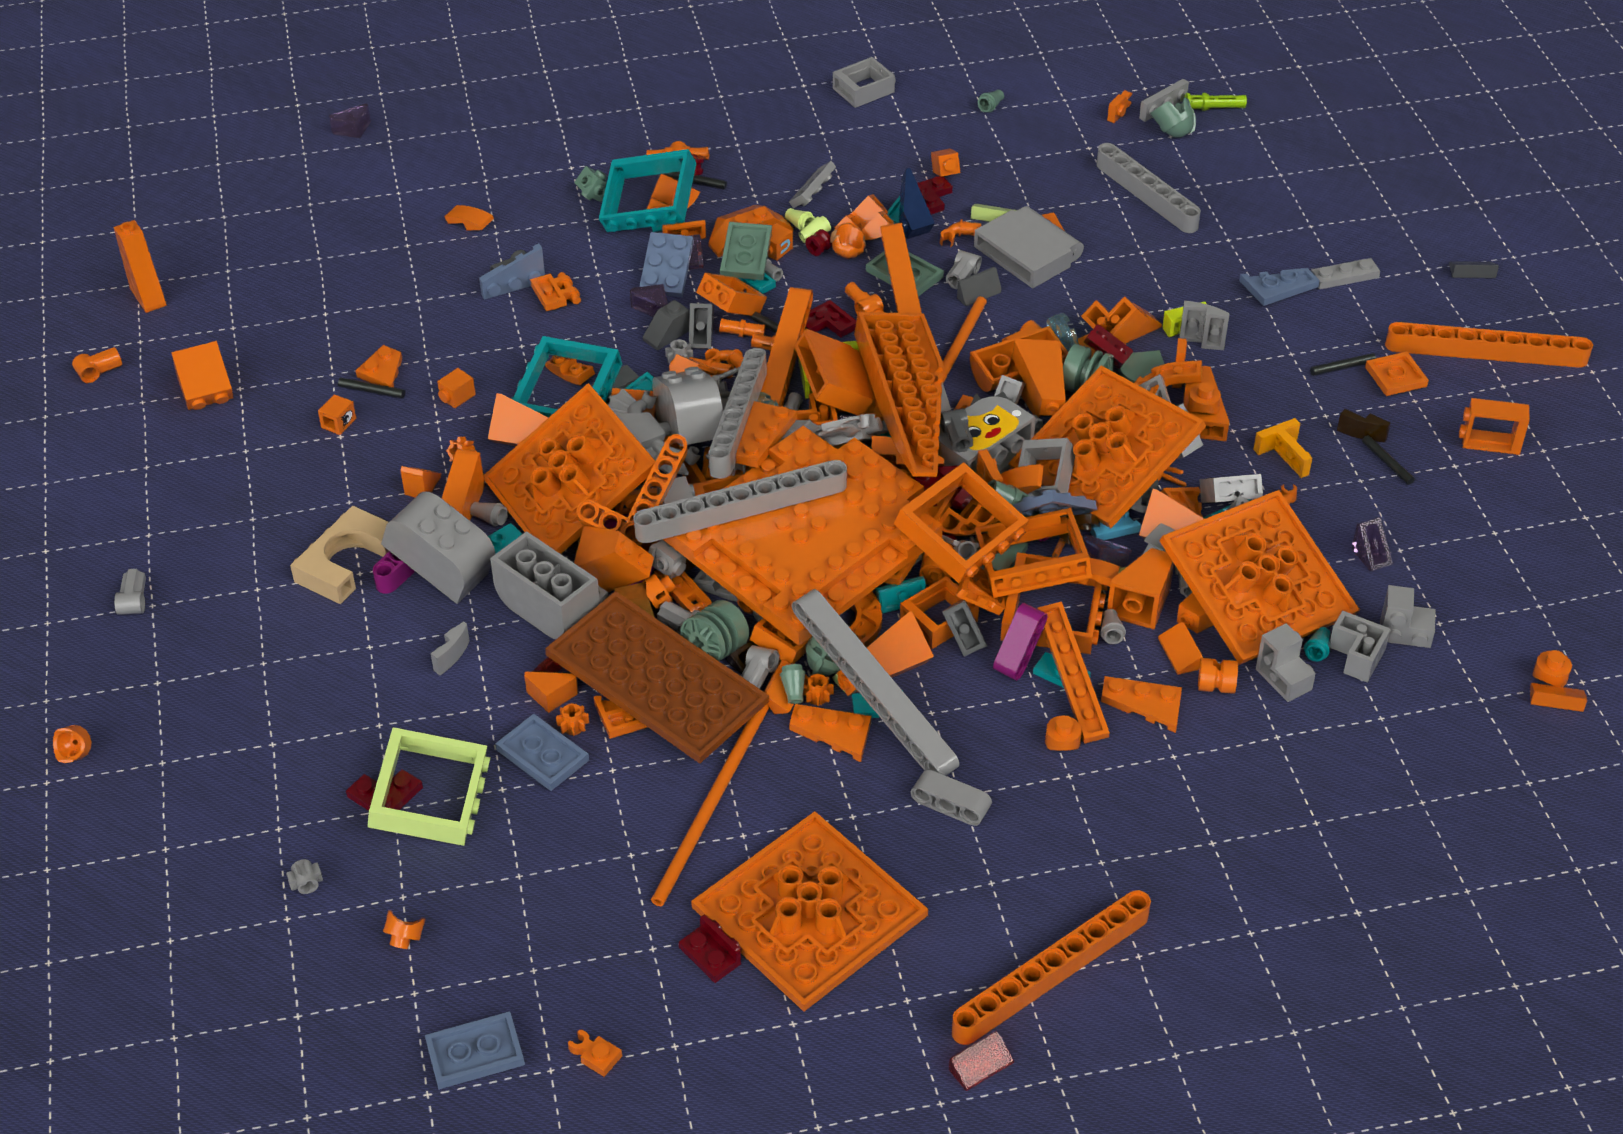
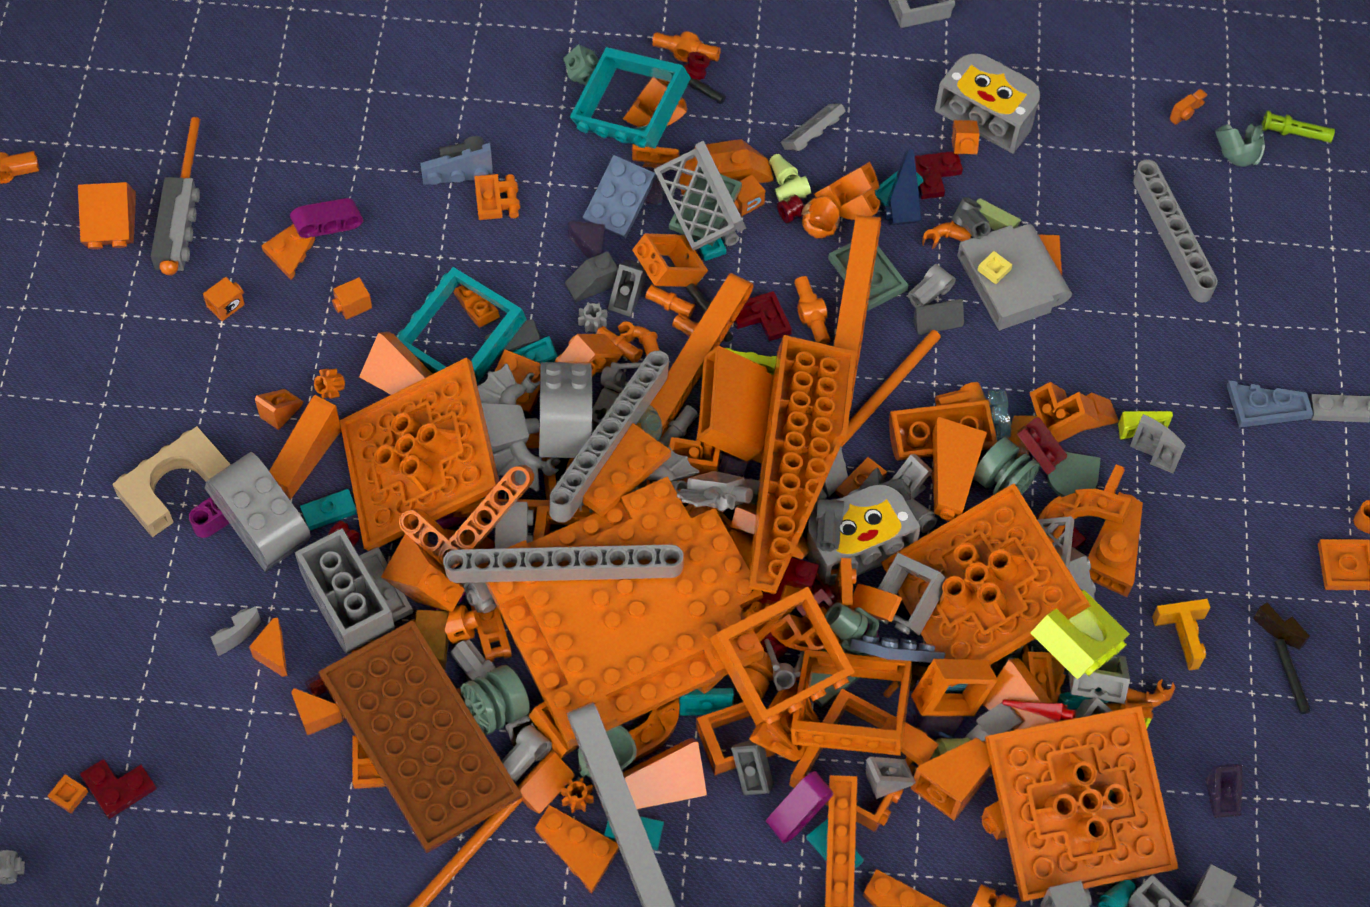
camera: 15 degrees right, 15 degrees up
(139, 266) = (84, 60): orange slope -> none
(268, 364) = (176, 214): none -> piece
(340, 808) = (68, 793): none -> orange plate
(373, 388) = (271, 271): pearl dark grey bar -> none
(408, 335) = (326, 218): none -> magenta beam
(423, 825) = (118, 773): yellowish green window -> none
(470, 216) = (444, 73): orange slope -> none
(489, 654) = (269, 648): none -> orange slope
(490, 512) = (332, 470): light grey cone -> none
(542, 752) = (281, 786): sand blue plate -> none
(572, 719) = (319, 751): orange gear -> none
(755, 230) = (719, 191): none -> light grey fence
(793, 682) = (552, 784): sand green cone -> none
(957, 126) = (991, 95): none -> light grey brick
(977, 211) = (970, 217): none -> dark grey piece
(988, 101) = (1048, 60): sand green cone -> none
(1013, 237) = (994, 267): none -> light yellow plate
(1084, 599) = (888, 775): none -> light grey slope
(1102, 506) = (930, 692): none -> orange window
(1112, 627) = (907, 810): light grey cone -> none
(1173, 94) = (1241, 111): light grey plate -> none
(1181, 649) = (968, 858): orange slope -> none
(1195, 515) = (1054, 711): none -> red piece
(1206, 453) = (1083, 640): none -> neon yellow arch
(1342, 364) = (1265, 532): pearl dark grey bar -> none

